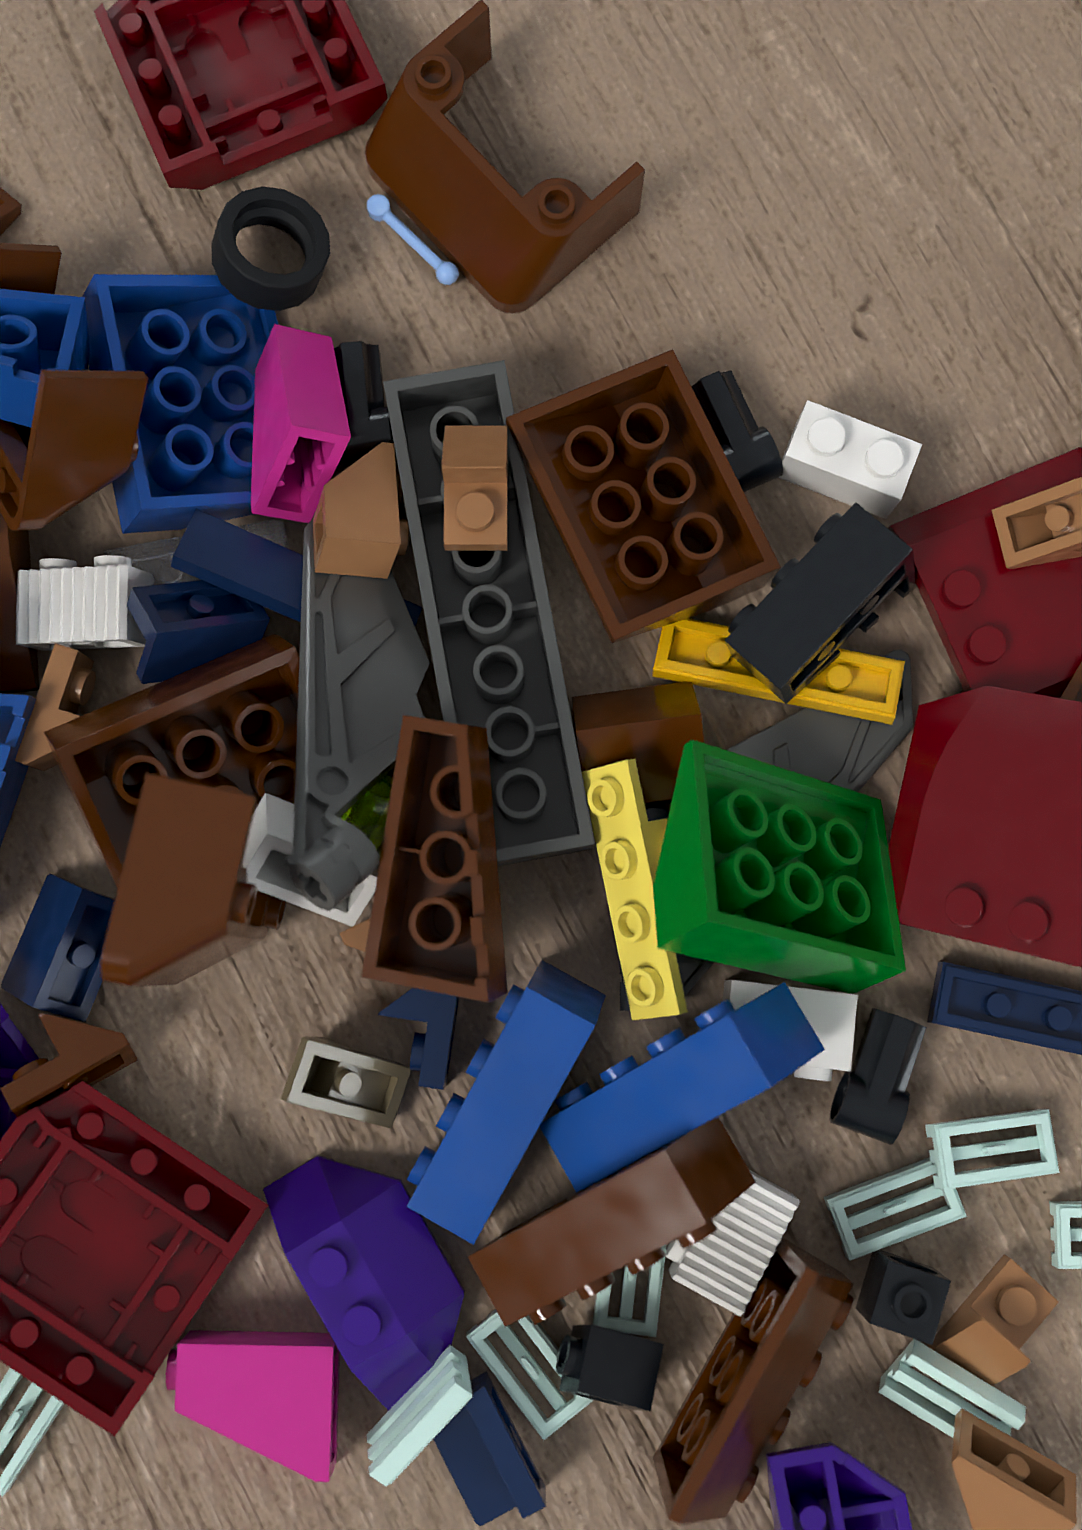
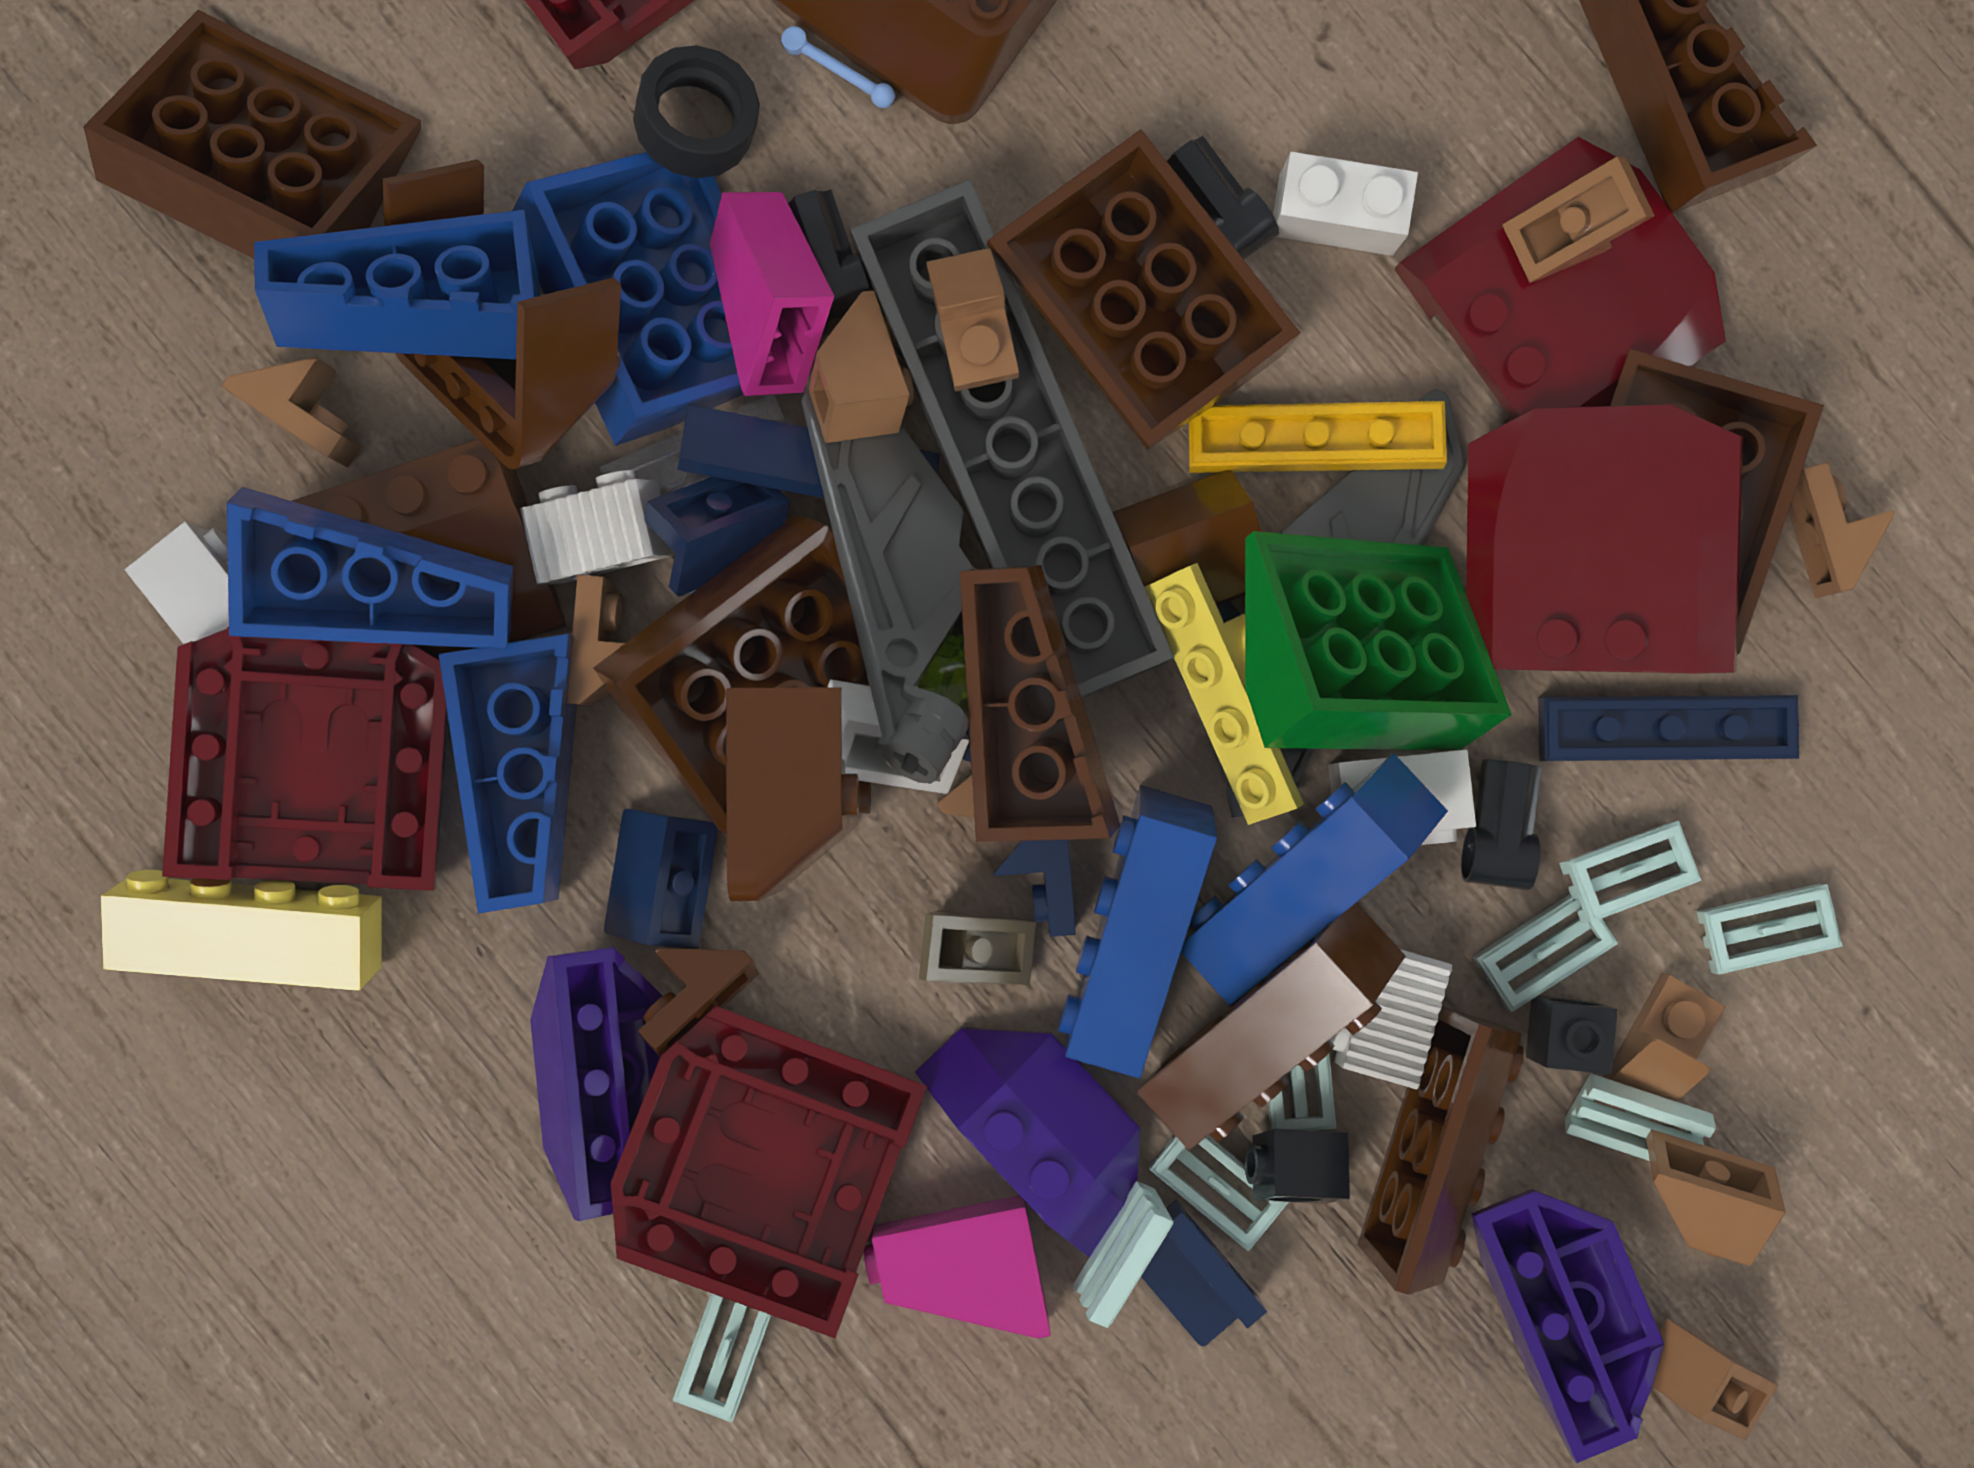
camera: 10 degrees left, 5 degrees up
(821, 601) = (1349, 359): black wedge -> none

